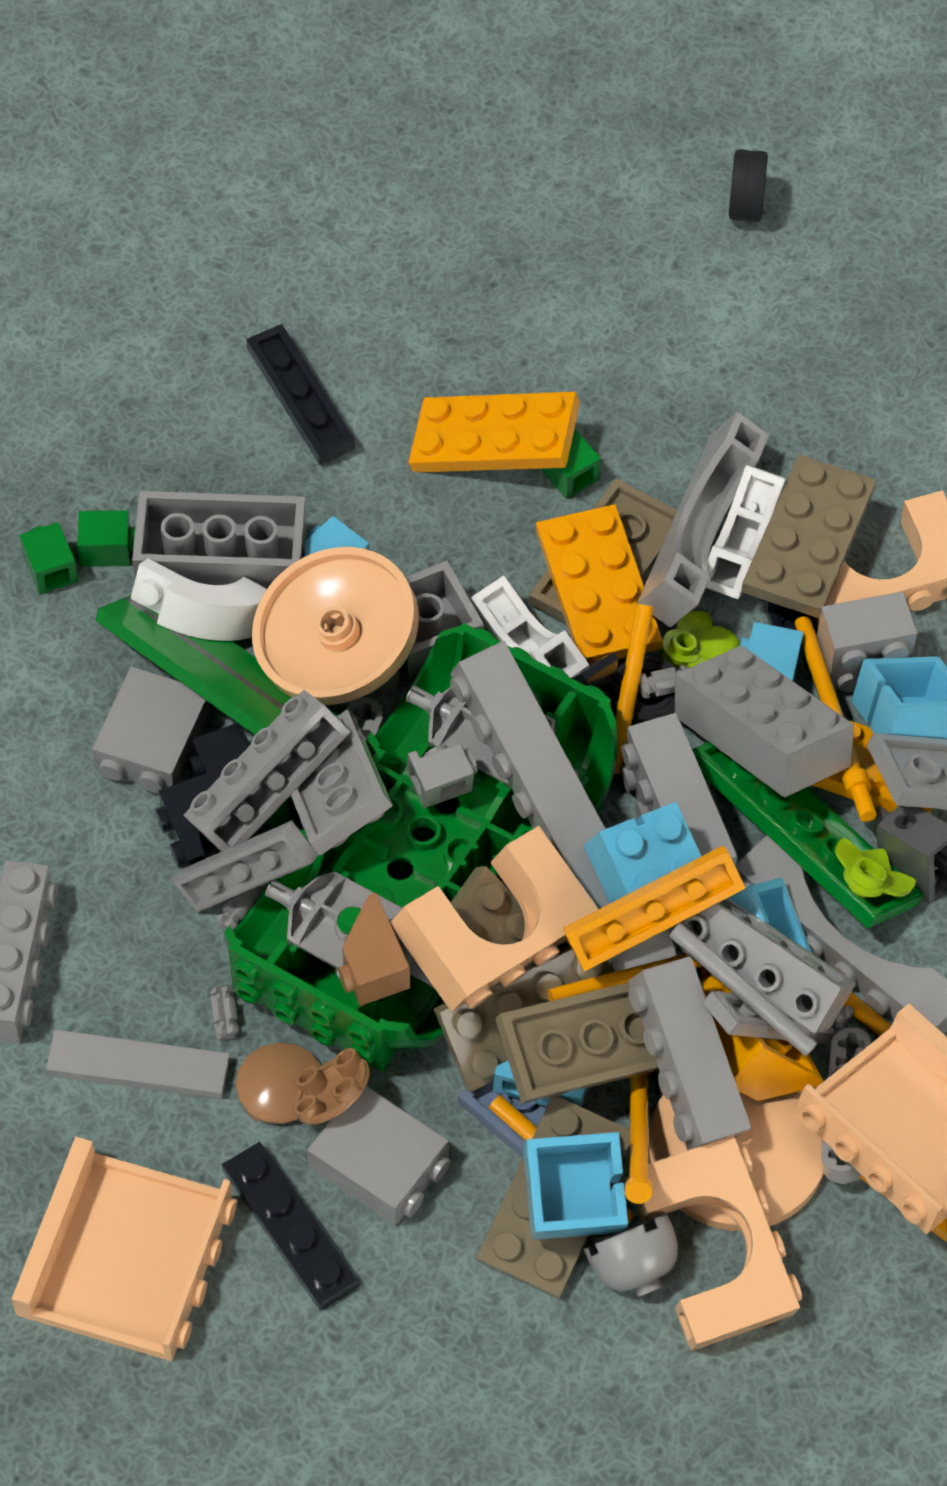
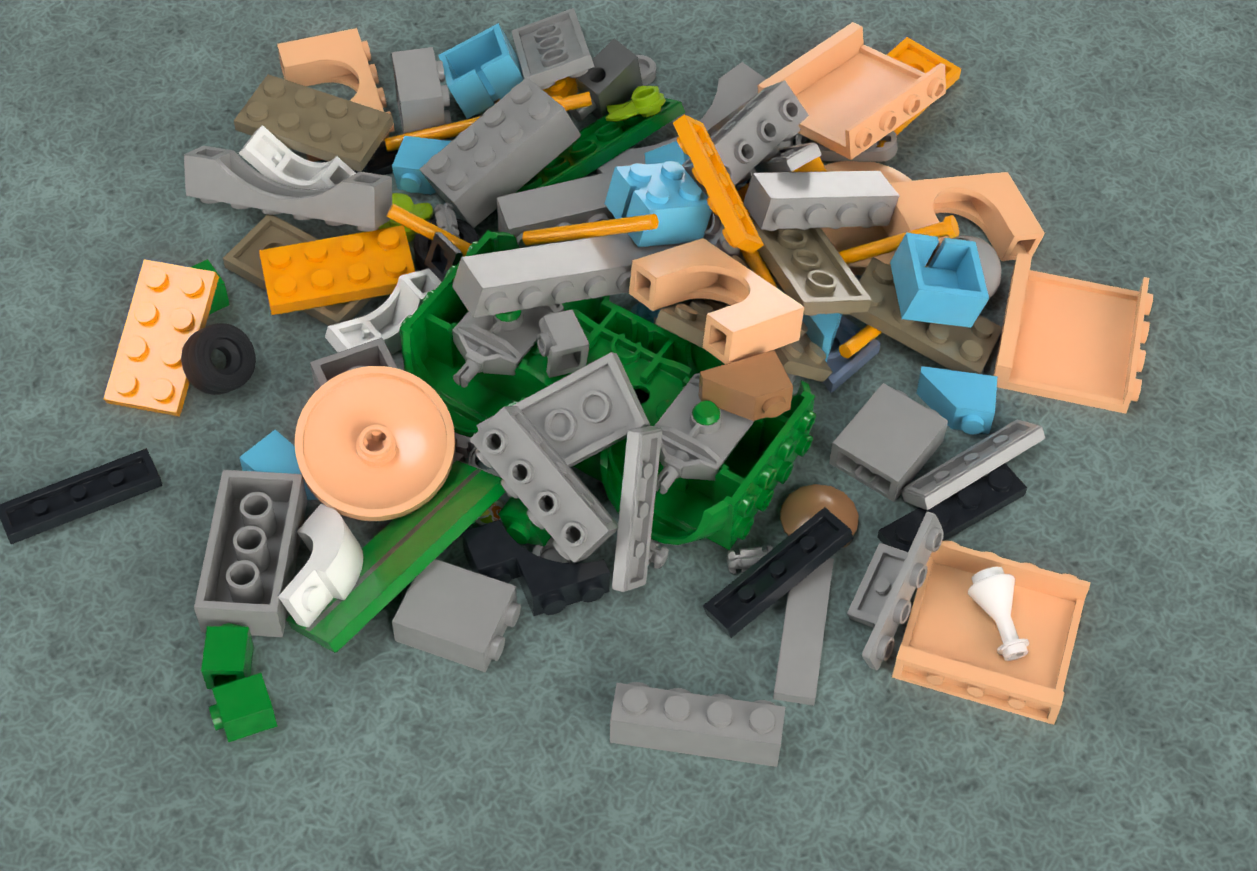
camera: 90 degrees left, 5 degrees down
(158, 1247) = (994, 594): none -> white piece
(166, 1139) = (888, 587): none -> light grey bracket
(195, 1030) = (778, 572): none -> black plate
(330, 1087) = (840, 462): medium nougat dish -> none
(350, 1246) = (972, 464): none -> light grey tile
(441, 1239) = (960, 397): none -> medium azure slope
(442, 490) = (199, 366): none -> black tyre
(552, 1375) = (1072, 339): none -> light nougat panel
(602, 793) = (590, 229): none -> light orange bar
(743, 989) = (776, 150): light grey bar -> none

